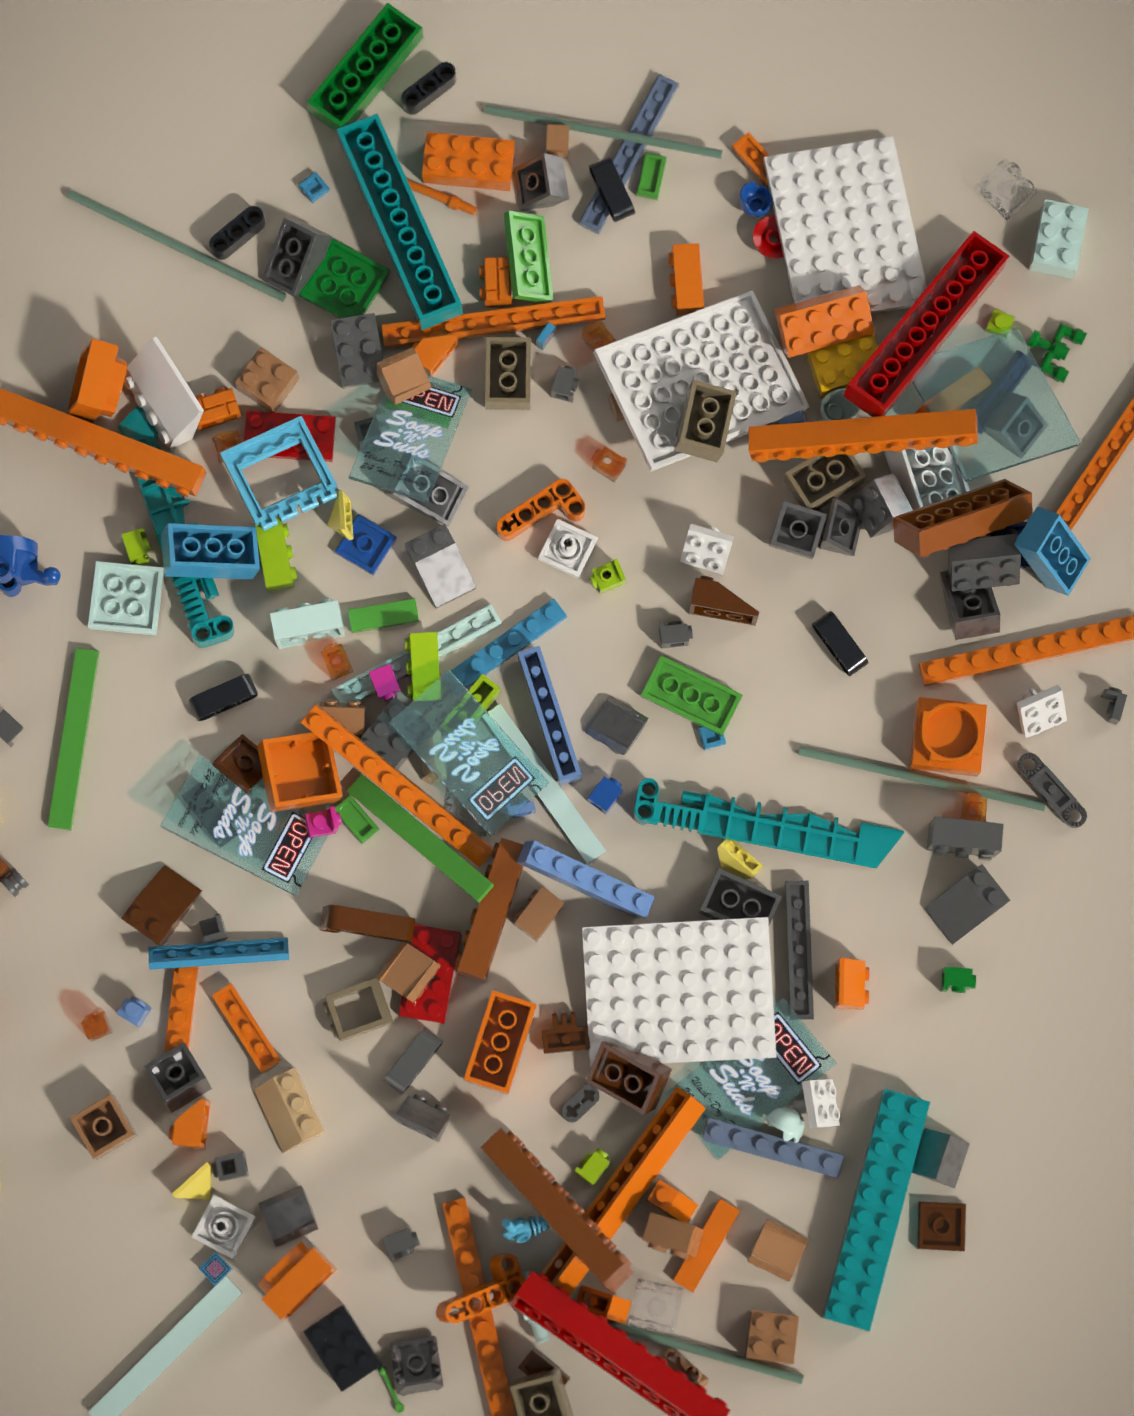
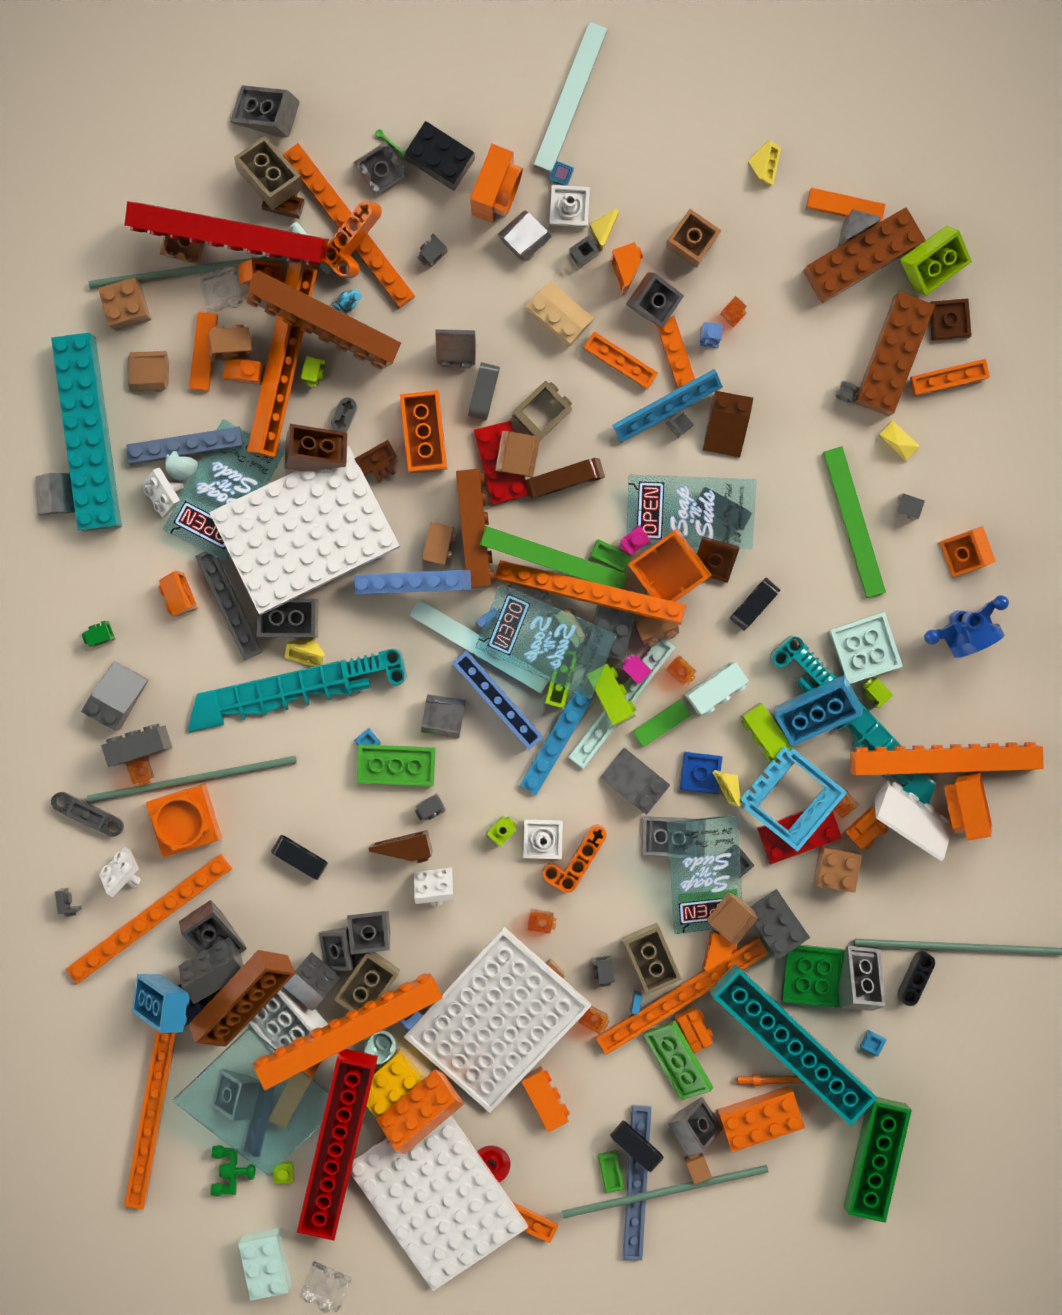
camera: 160 degrees right, 10 degrees up
(434, 79) = (819, 1156): black beam -> none
(605, 794) = (428, 658): blue brick -> none
(705, 421) = (477, 986): dark tan brick -> none
(755, 199) = (520, 1188): blue hair -> none
(941, 1226) = (33, 443): reddish brown tile -> none

